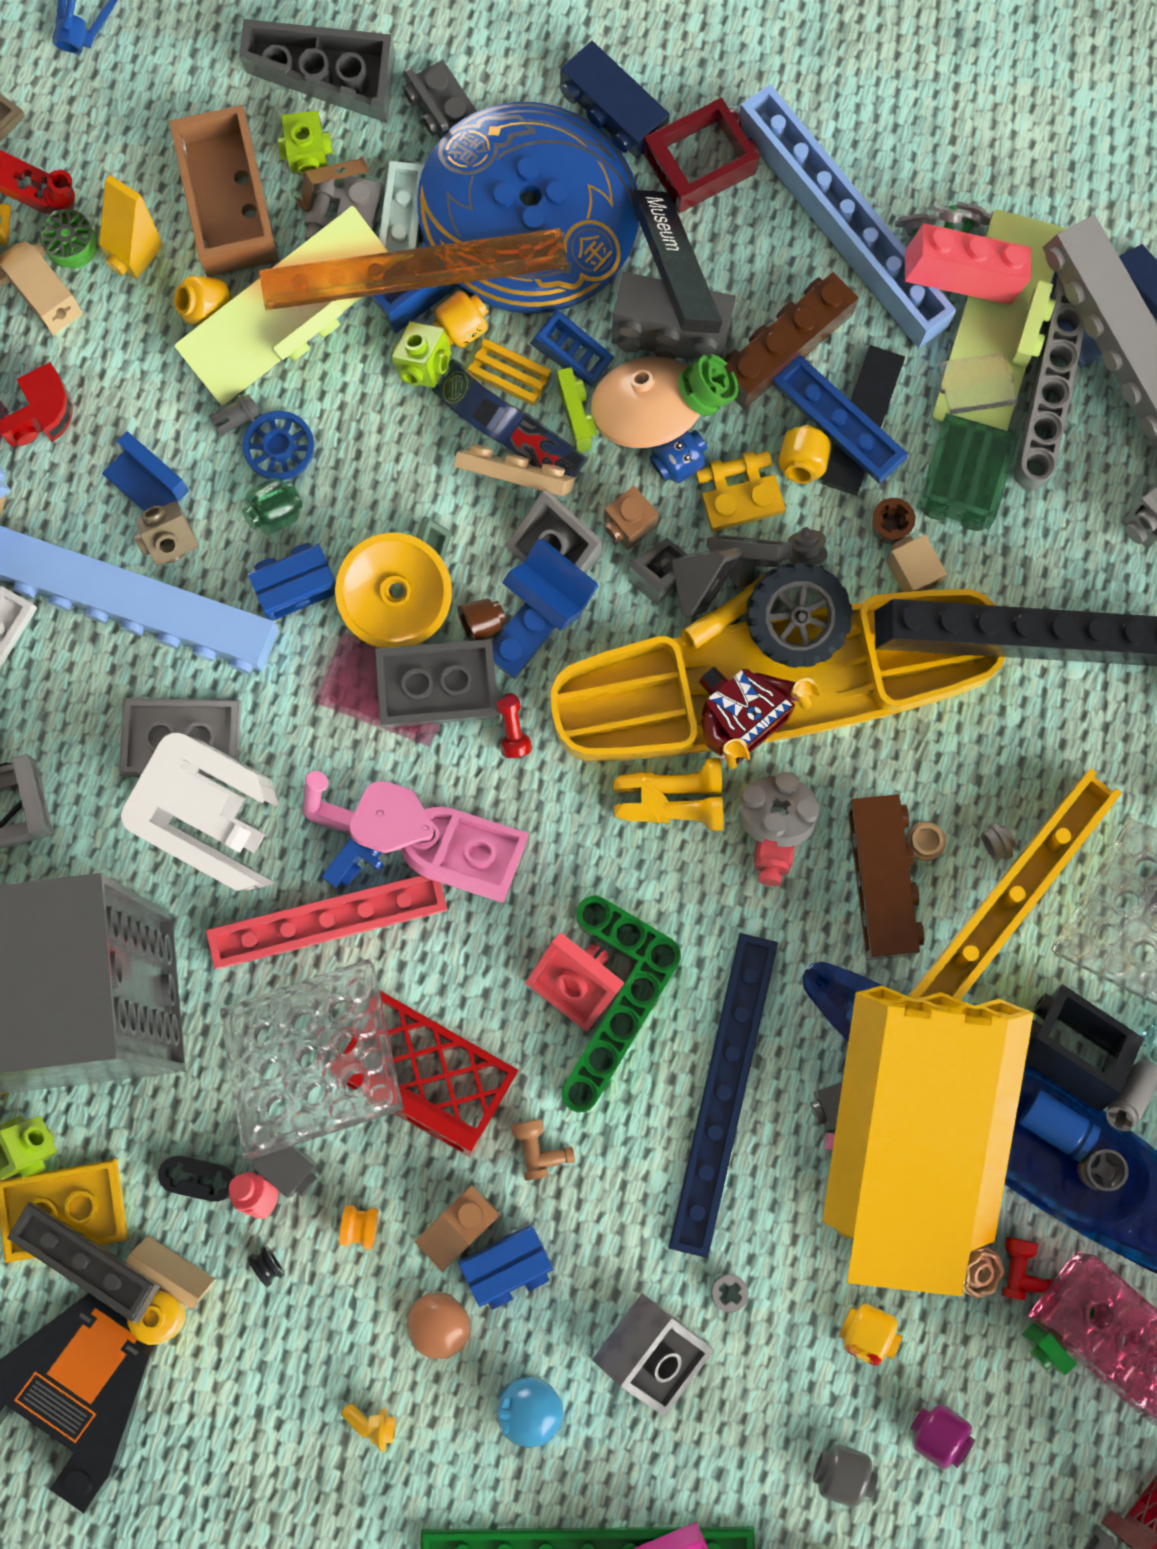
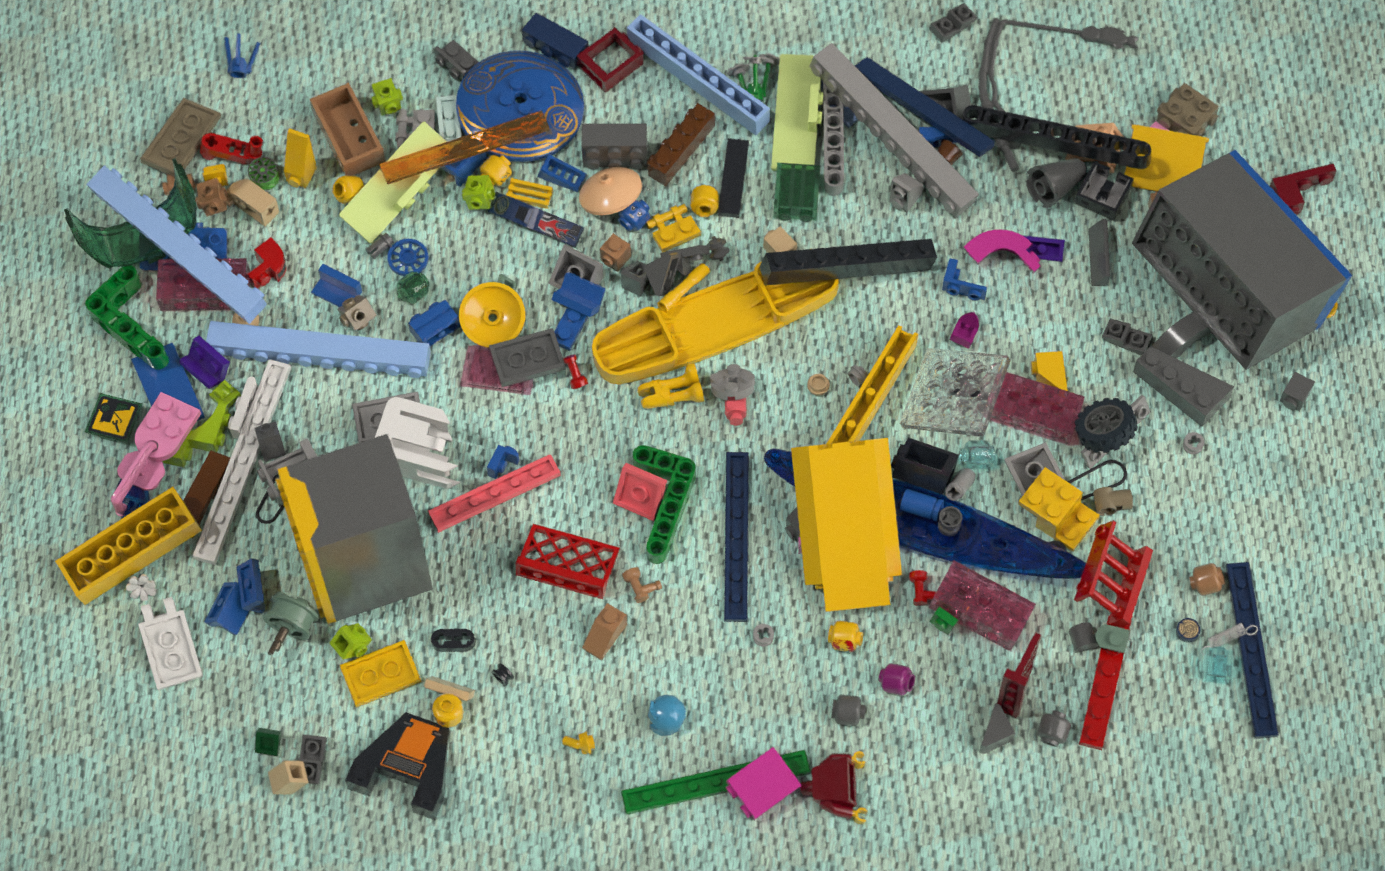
camera: 10 degrees left, 15 degrees down
(84, 1262) = (401, 687): dark grey tile -> none
(253, 1195) = (487, 636): coral arm -> none
(287, 1170) = (501, 621): dark grey brick -> none
(322, 62) = (387, 54): dark grey wedge -> none
(326, 174) = (402, 110): medium nougat piece -> none
(338, 1108) = (497, 569): clear piece -> none
(358, 1226) = (549, 643): light orange wheel -> none
(389, 817) = (543, 438): bright pink plate -> none
(438, 1325) = (605, 686): nougat hair -> none
(481, 618) = (543, 320): reddish brown hat -> none
(507, 1266) = (636, 645): blue brick -> none
(514, 470) = (544, 239): tan plate -> none
(572, 396) = (568, 198): lime plate -> none
(652, 1355) = (728, 672): flat silver slope -> none
(676, 262) = (609, 112): black tile -> none
(709, 385) = (642, 173): bright green wheel -> none
(748, 710) = (704, 334): torso -> none
(833, 632) = (735, 265): black wheel -> none
(840, 419) = (719, 178): blue plate -> none
(884, 877) = (798, 403): reddish brown brick -> none
(892, 520) = (760, 223): reddish brown hat -> none
(967, 264) = (770, 83): coral brick -> none
(977, 383) = (791, 144): clear piece -> none
(982, 1272) = (903, 591): tan plate -> none

